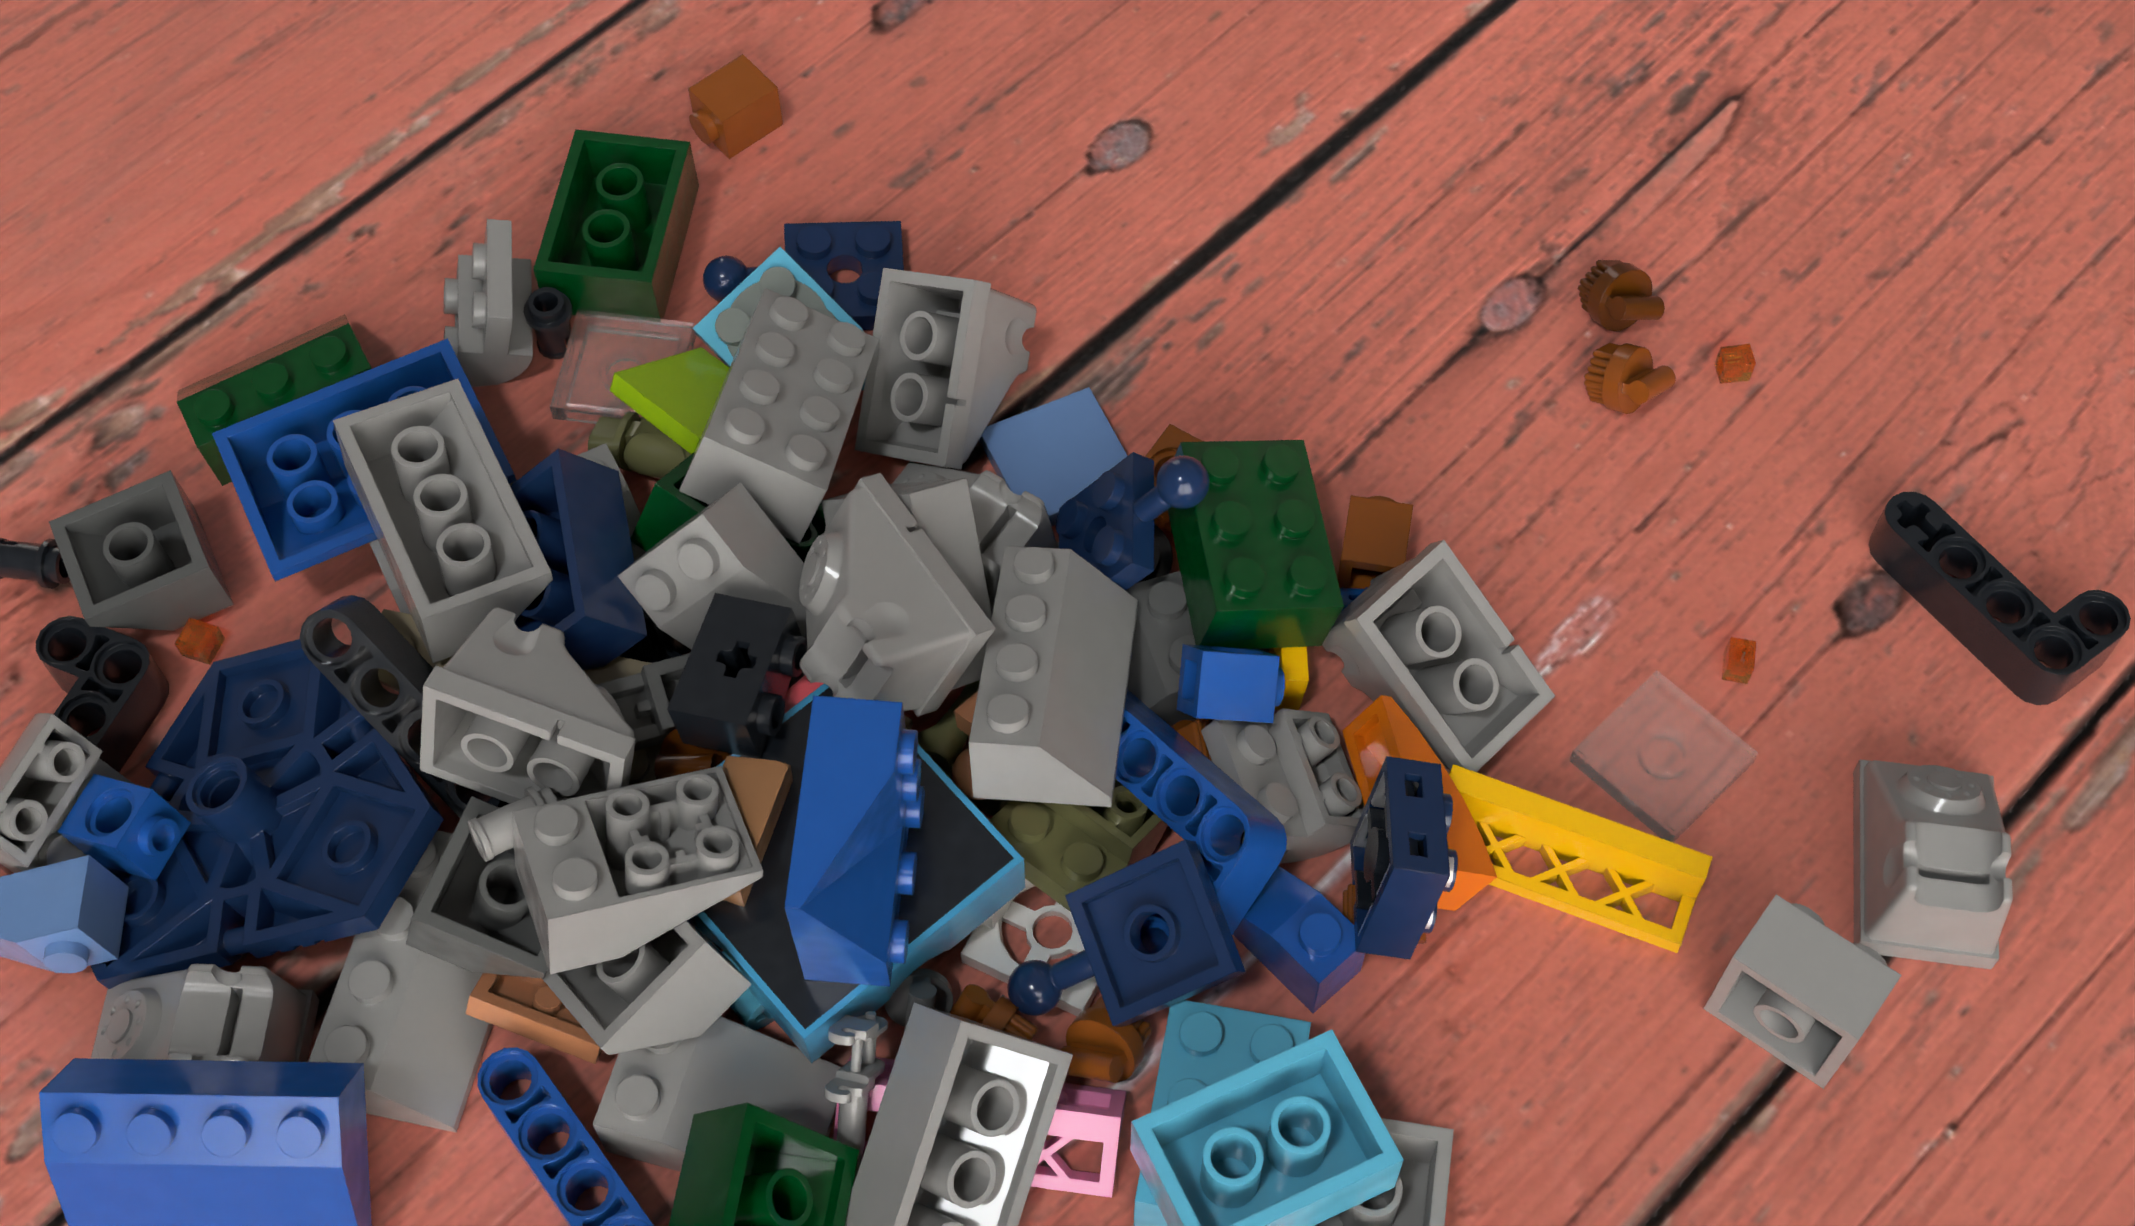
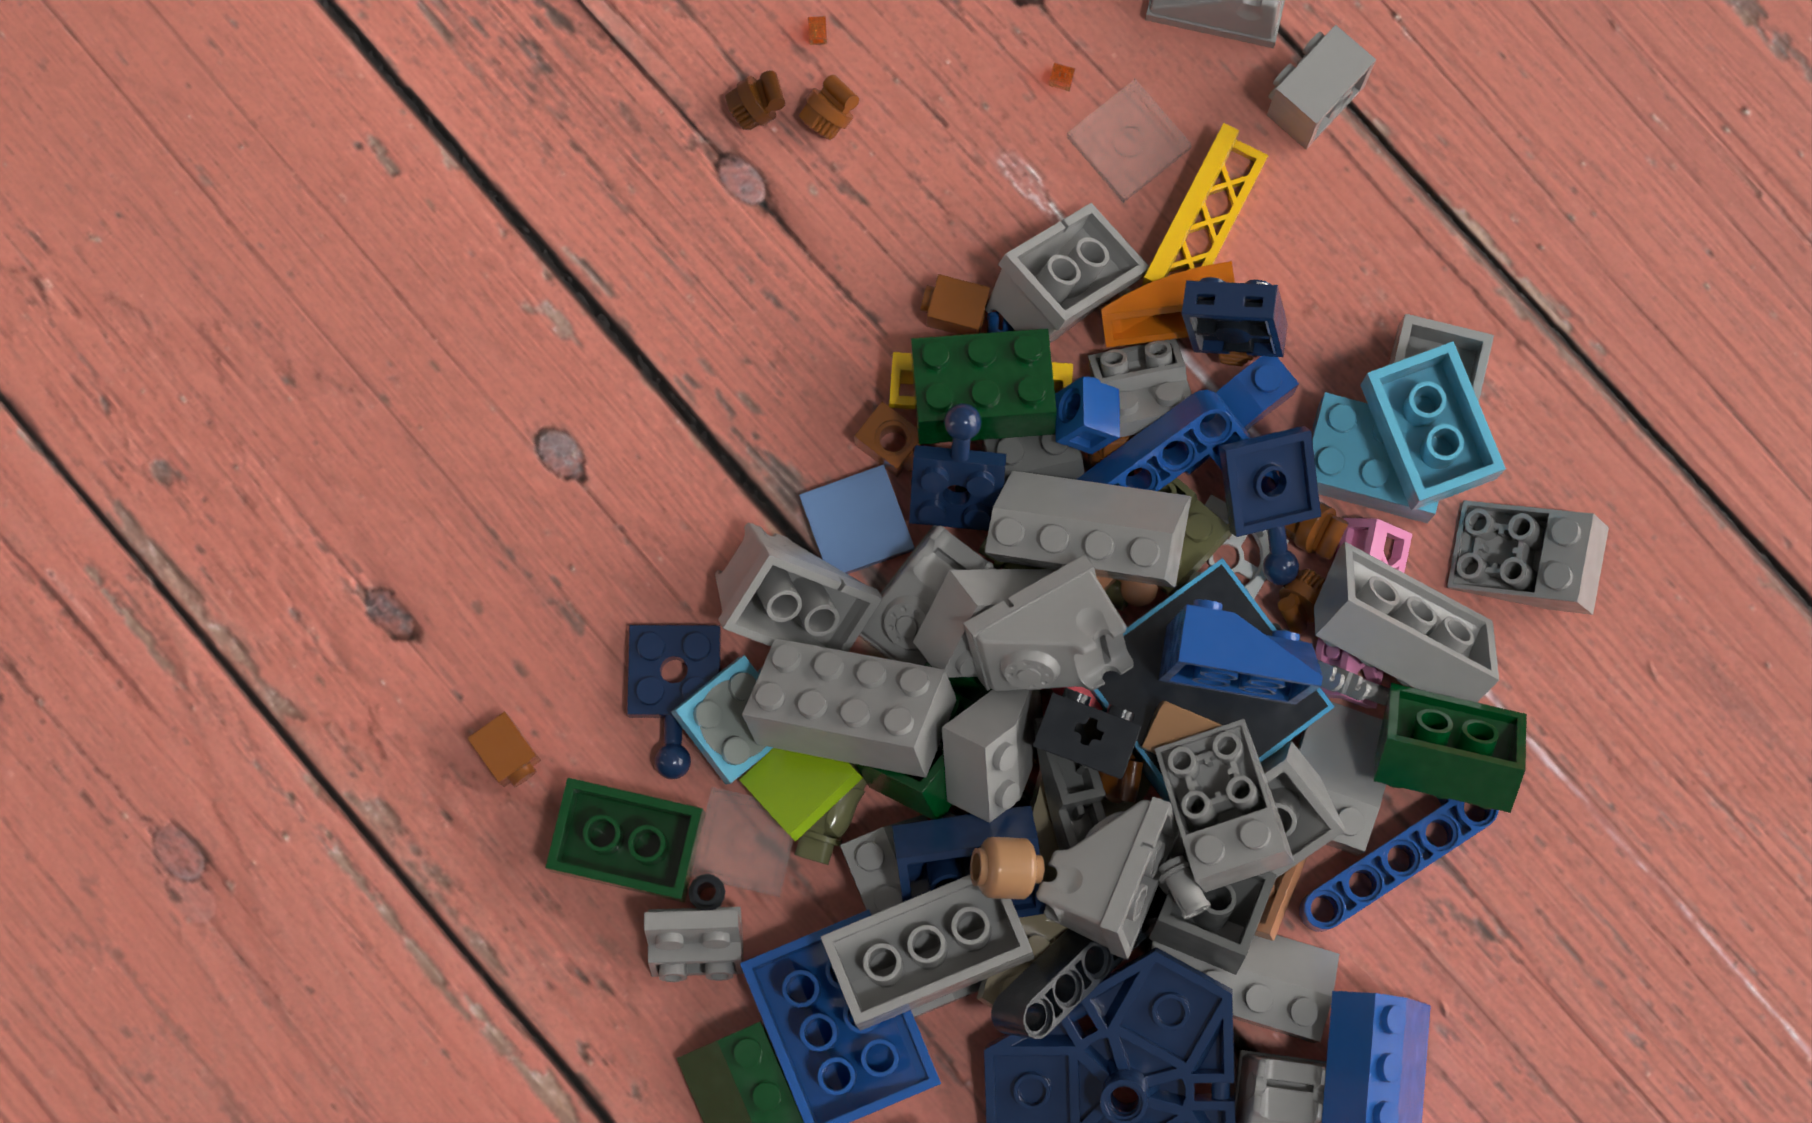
camera: 85 degrees left, 20 degrees up
(535, 565) = (1006, 868): none -> medium nougat head

